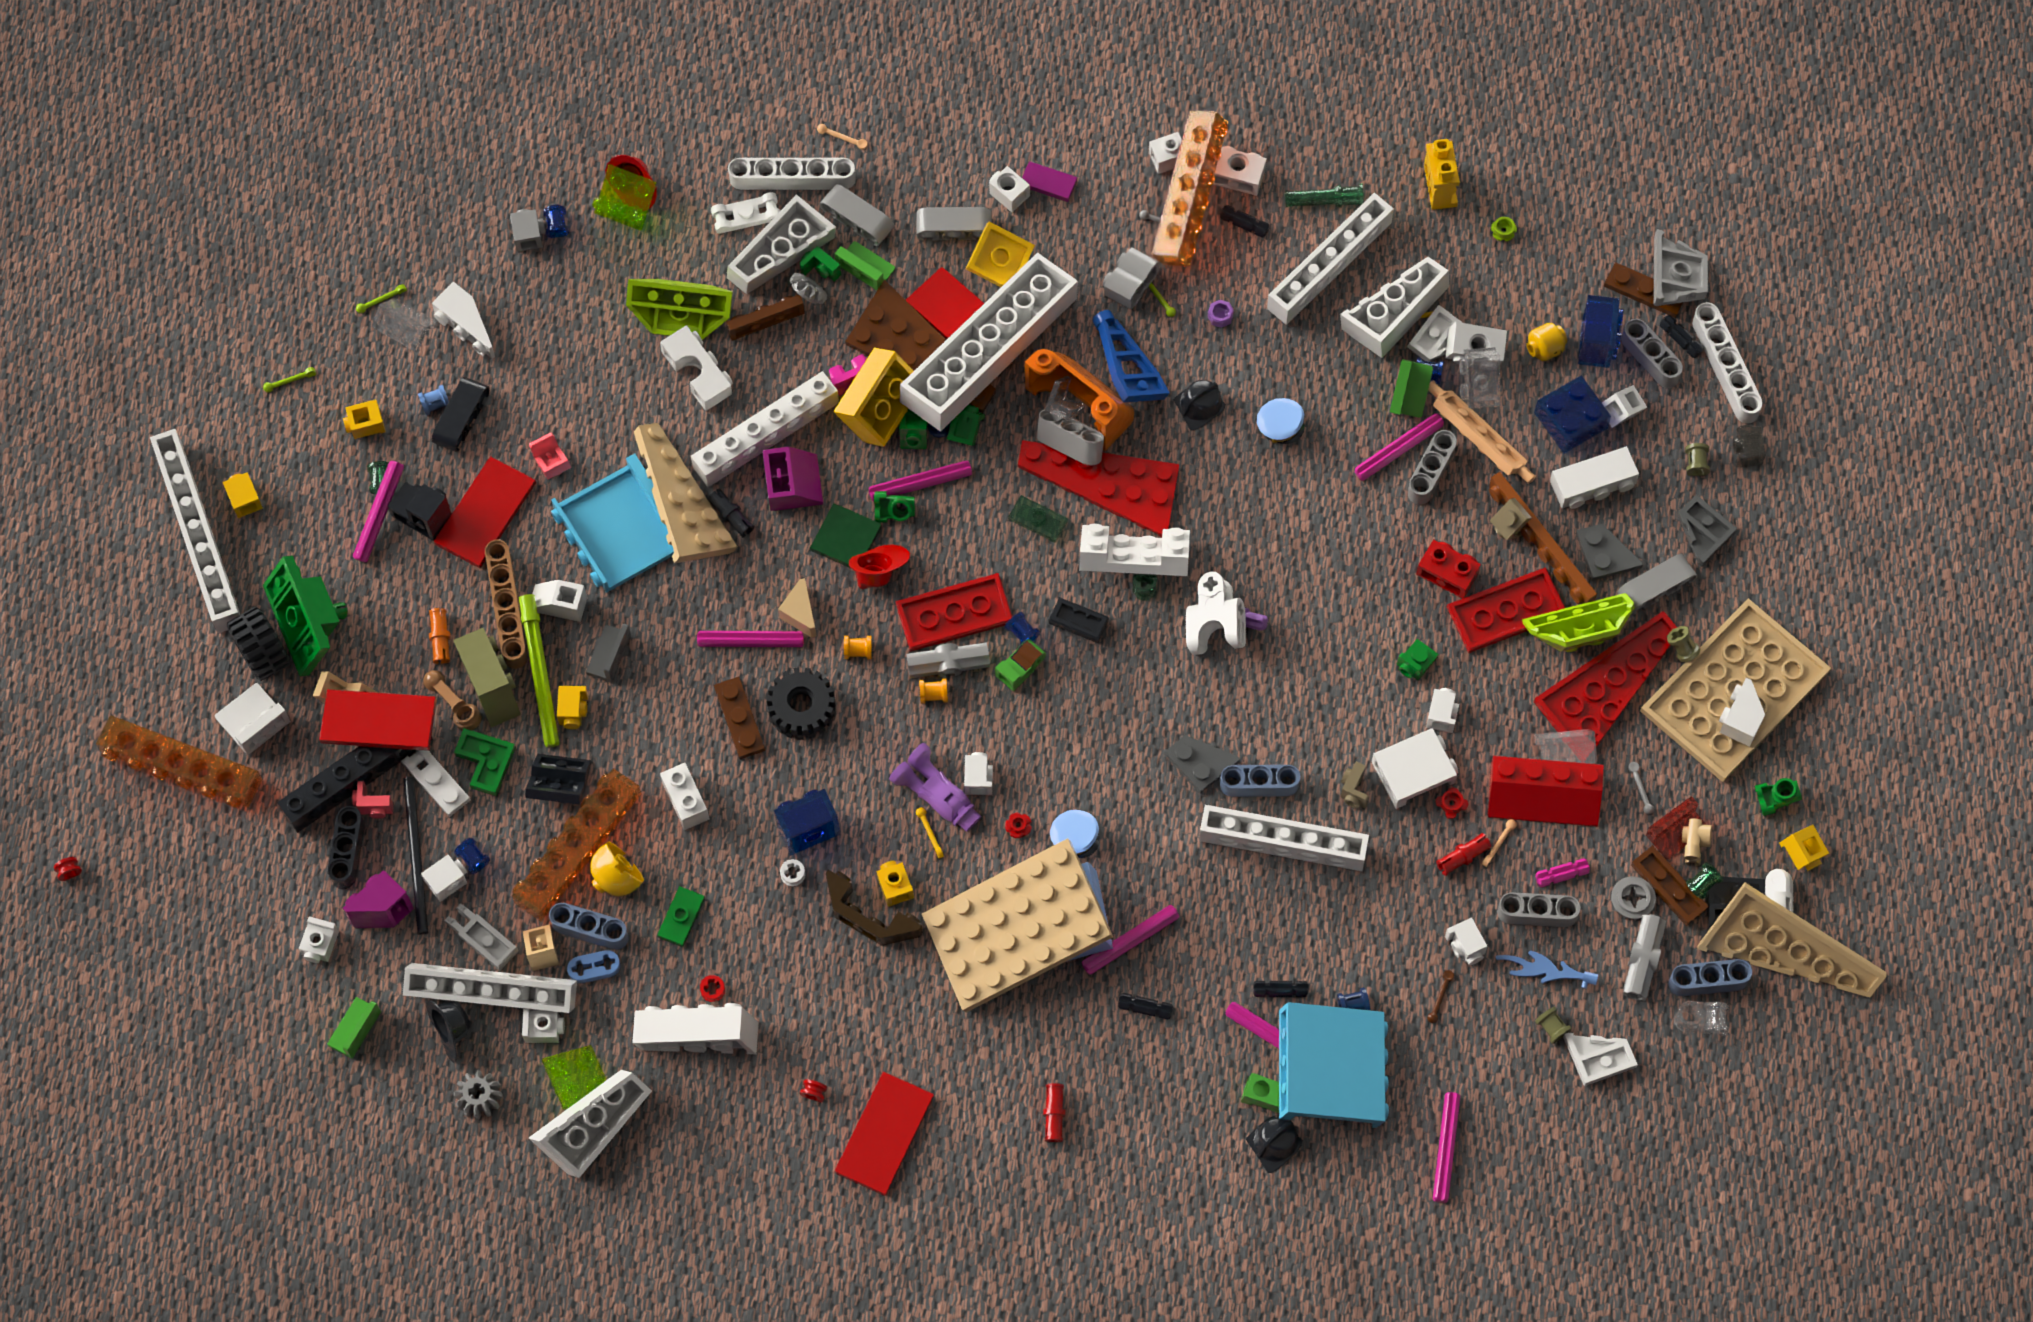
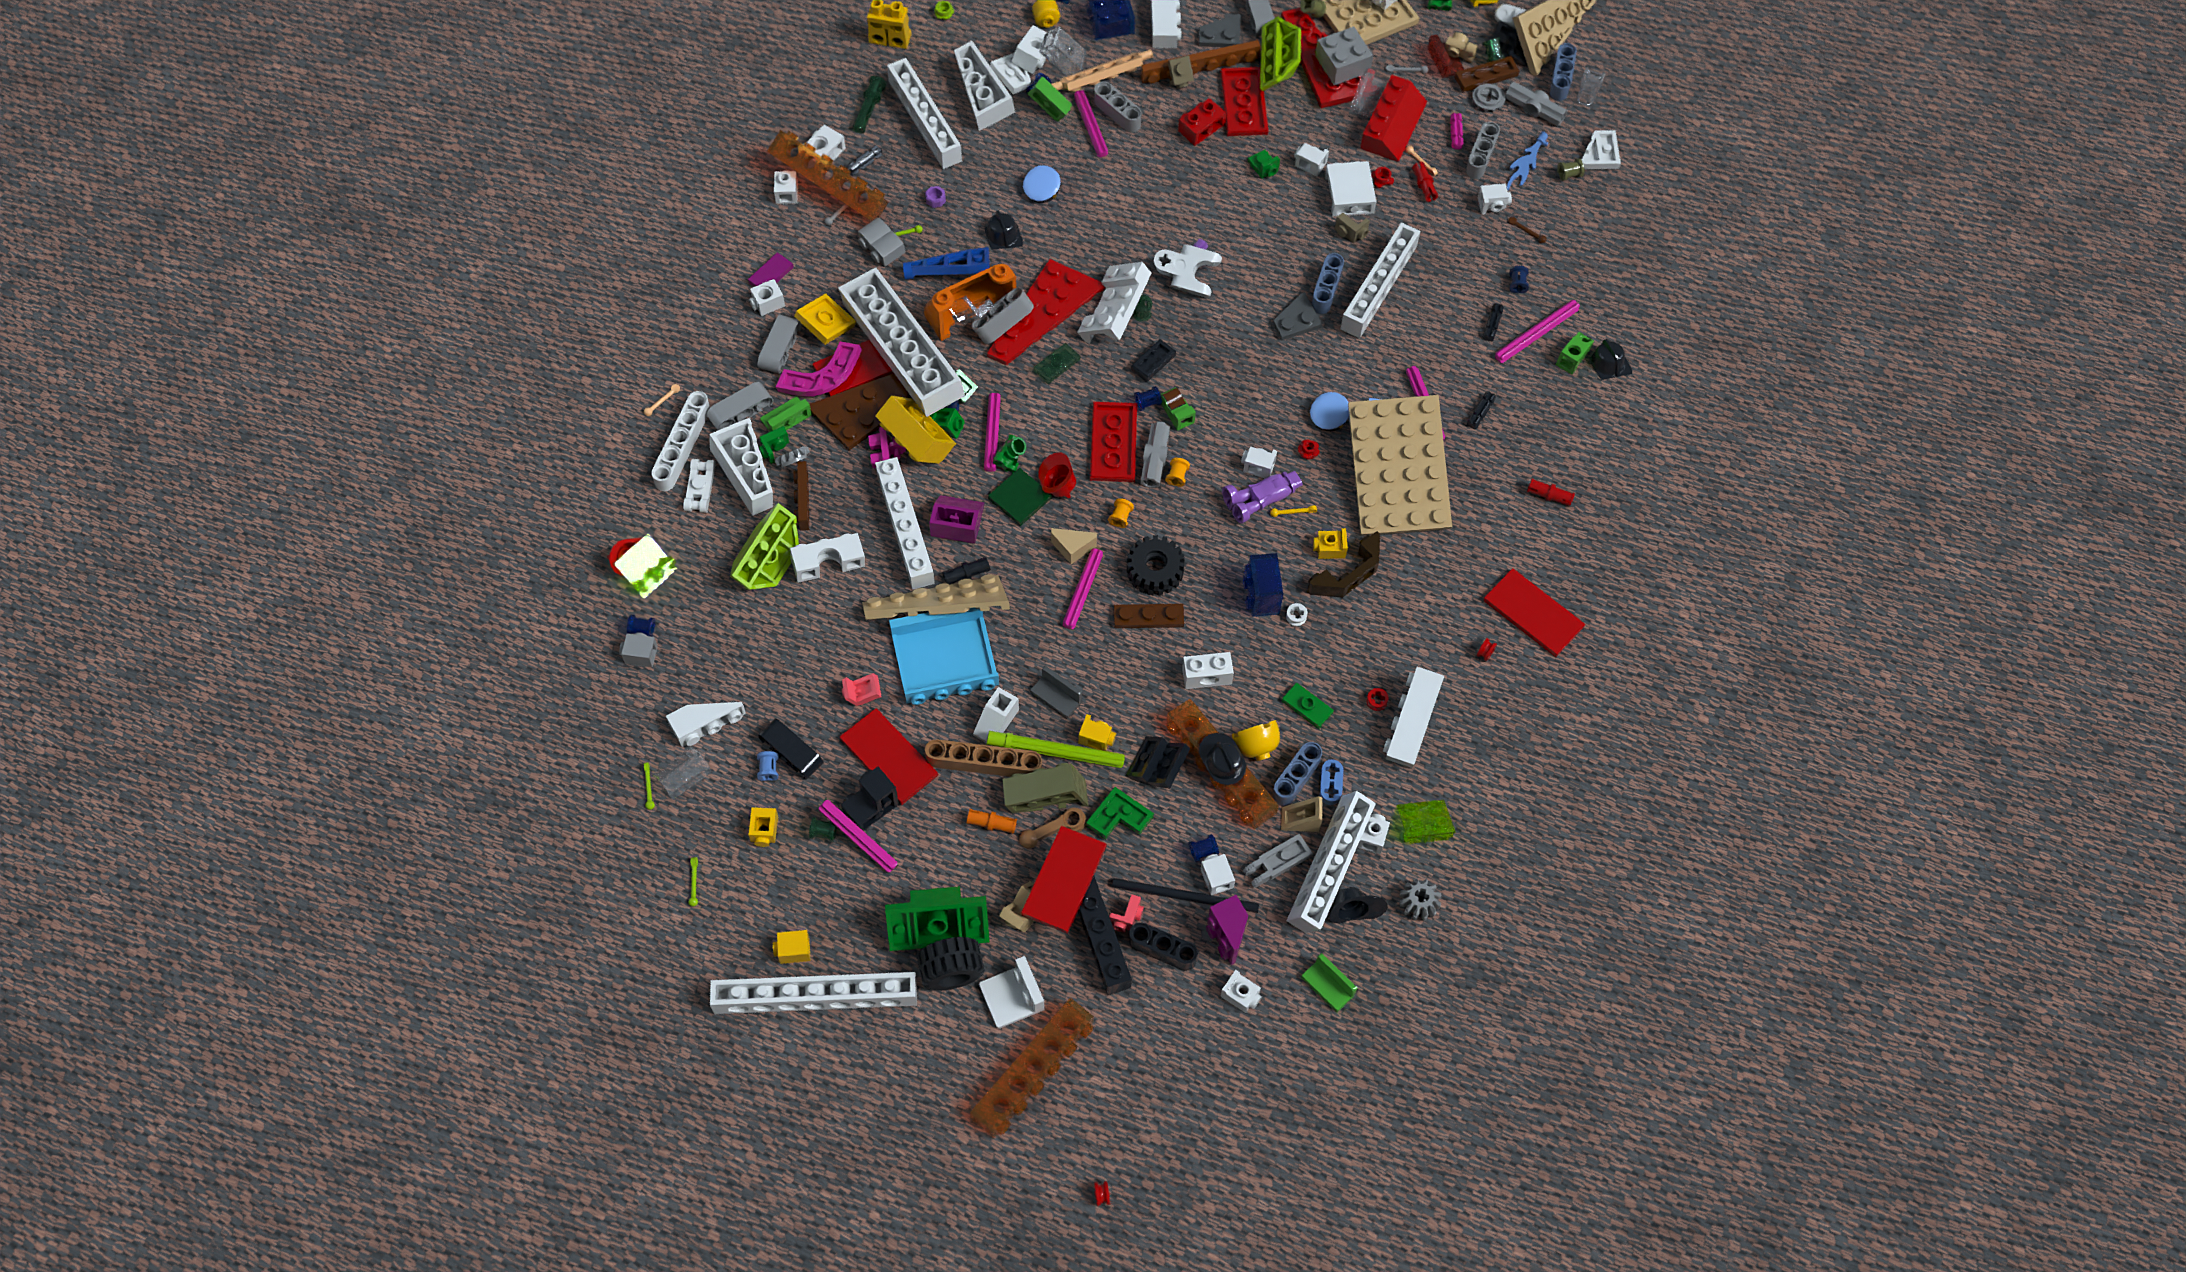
camera: 75 degrees left, 5 degrees down
(436, 782) = (1126, 860): white plate -> none
(574, 839) = (1222, 758): none -> black piece
(590, 1124) = (1473, 813): white wedge -> none
(924, 288) = (824, 380): none -> dark pink plate
(1332, 1063) = (1568, 302): medium azure panel -> none
(1446, 1147) = (1643, 260): dark pink axle -> none
(1609, 700) = (1343, 55): none -> light grey brick

